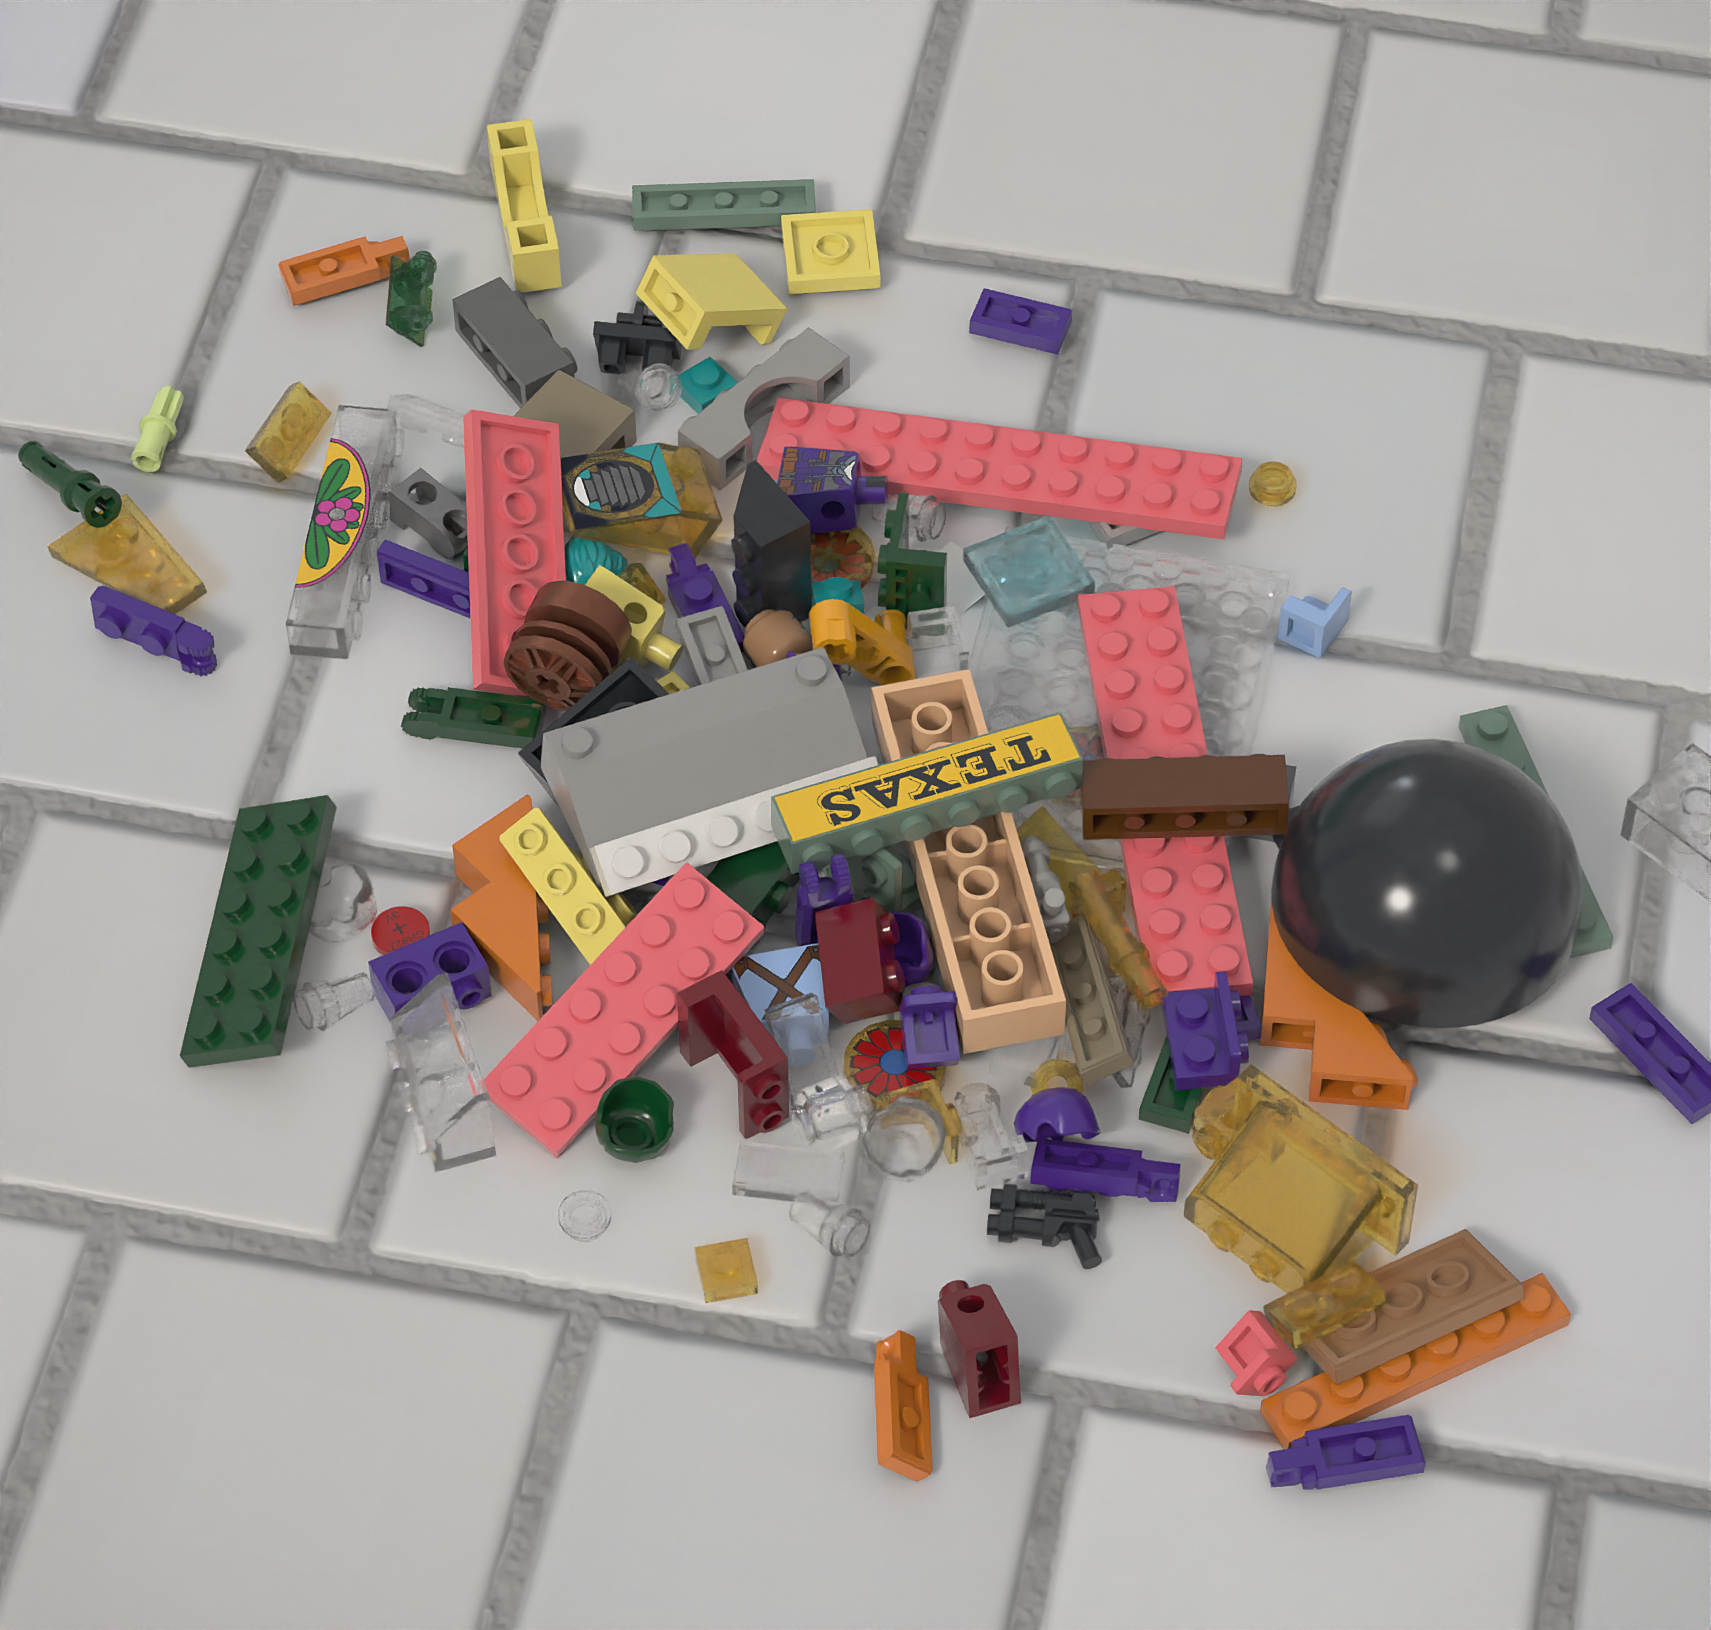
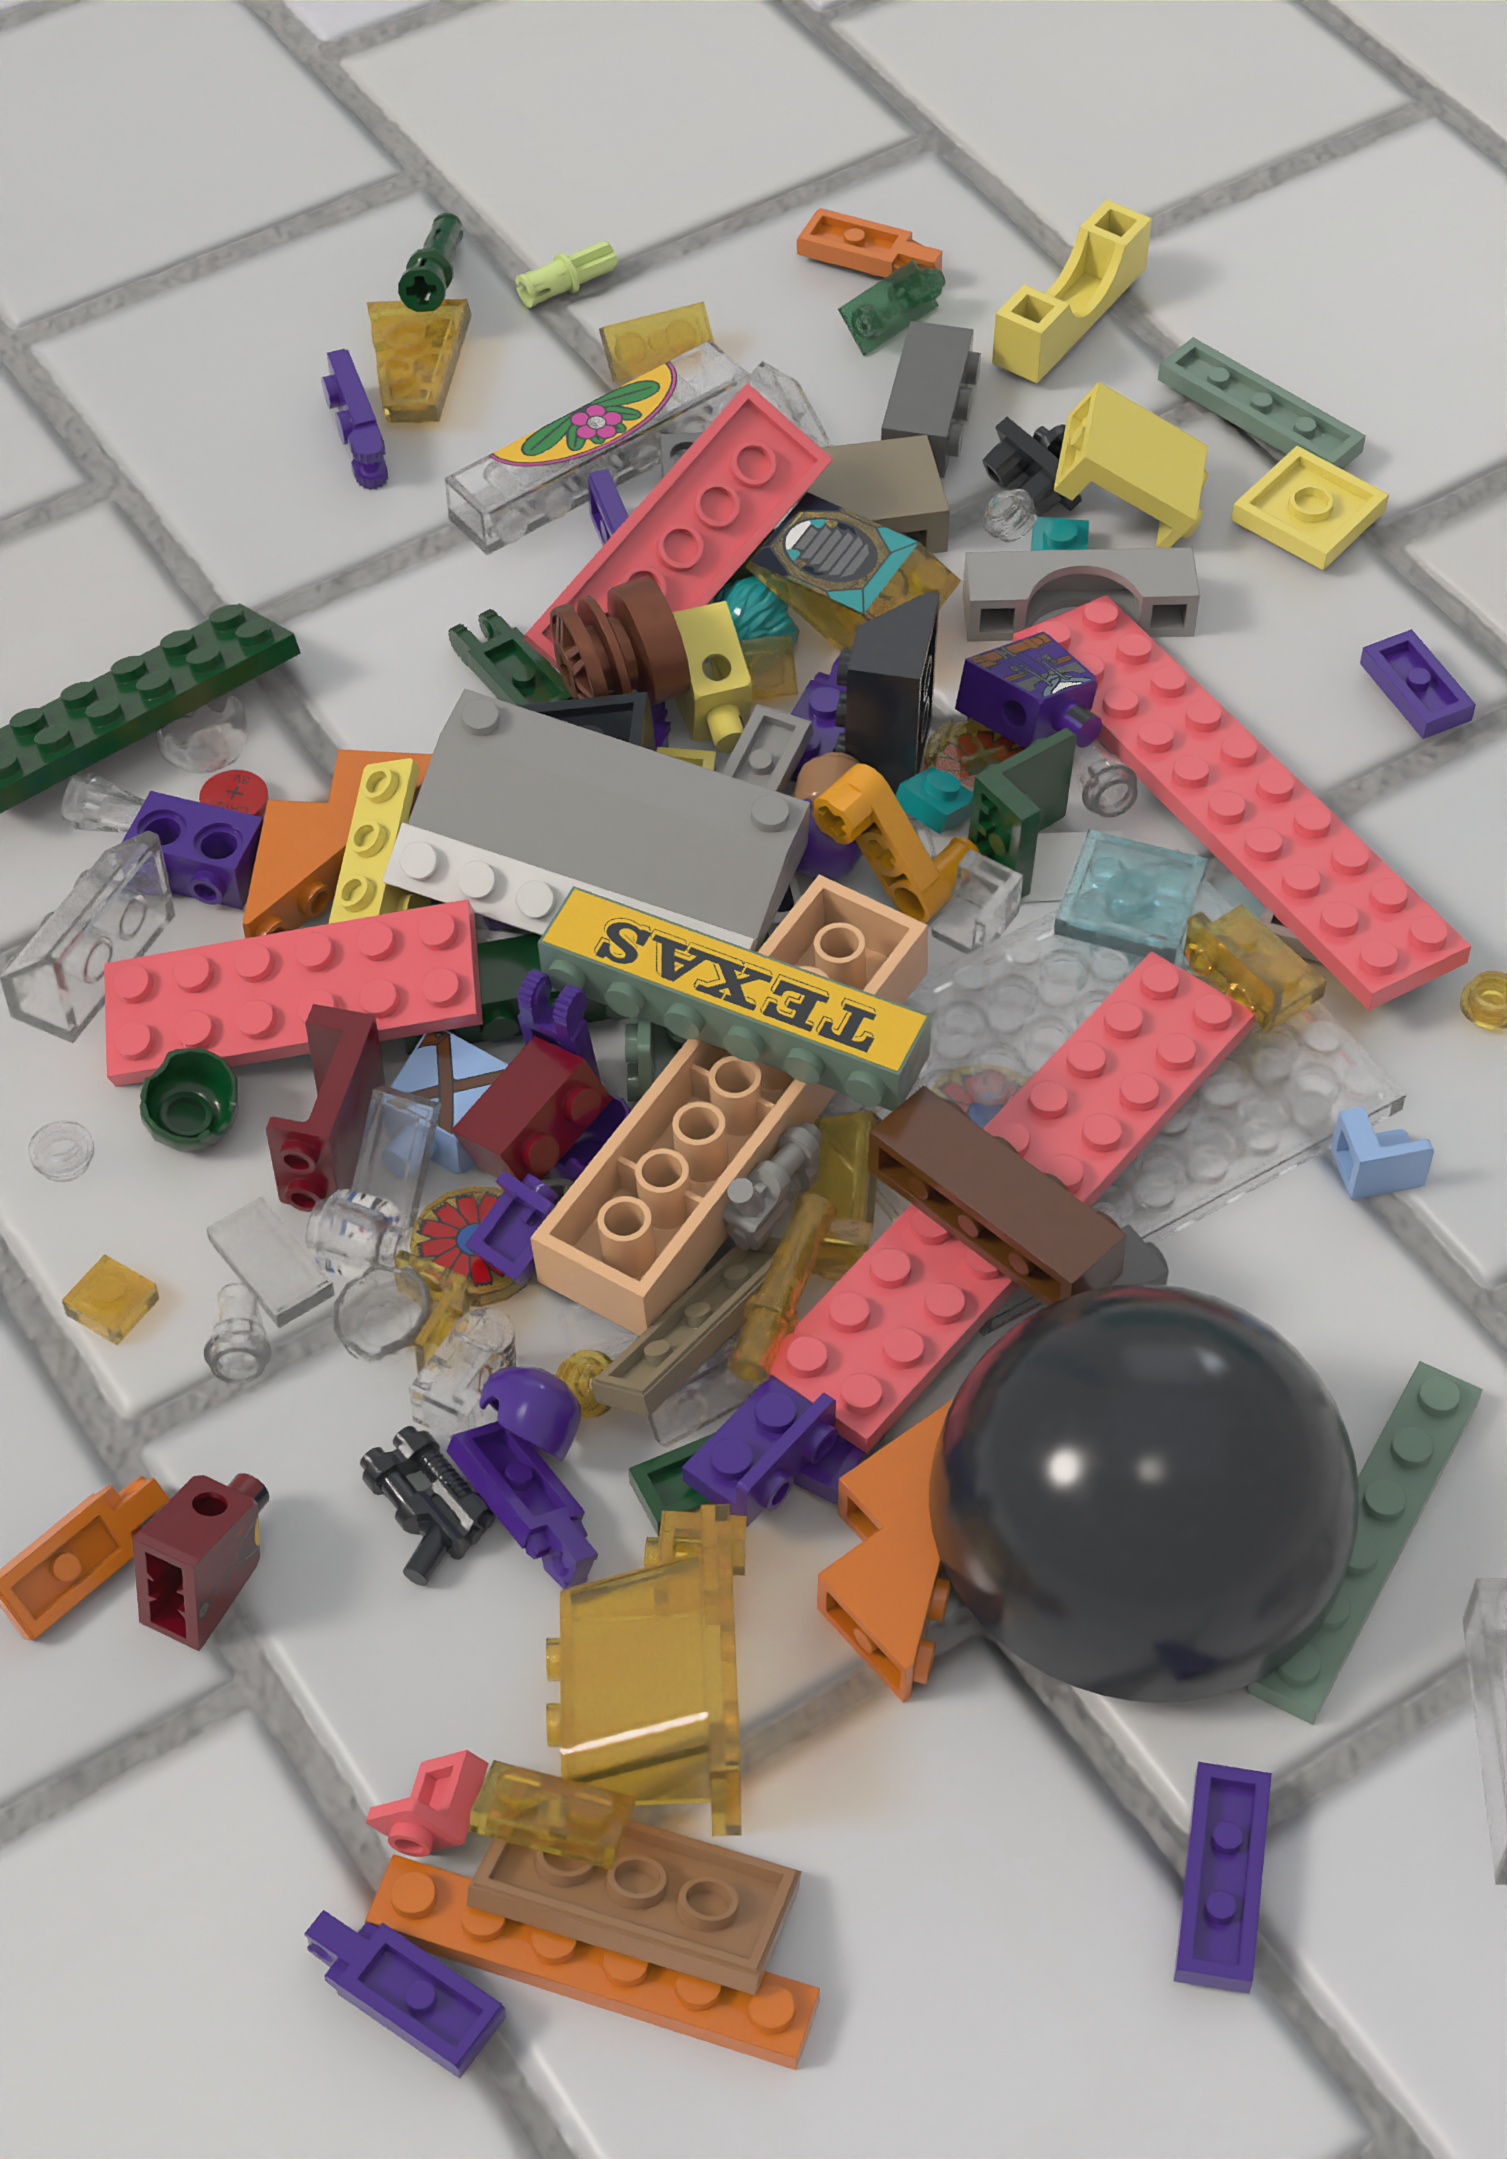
camera: 45 degrees right, 0 degrees up
(1138, 560) = (1252, 966): none -> clear yellow bracket

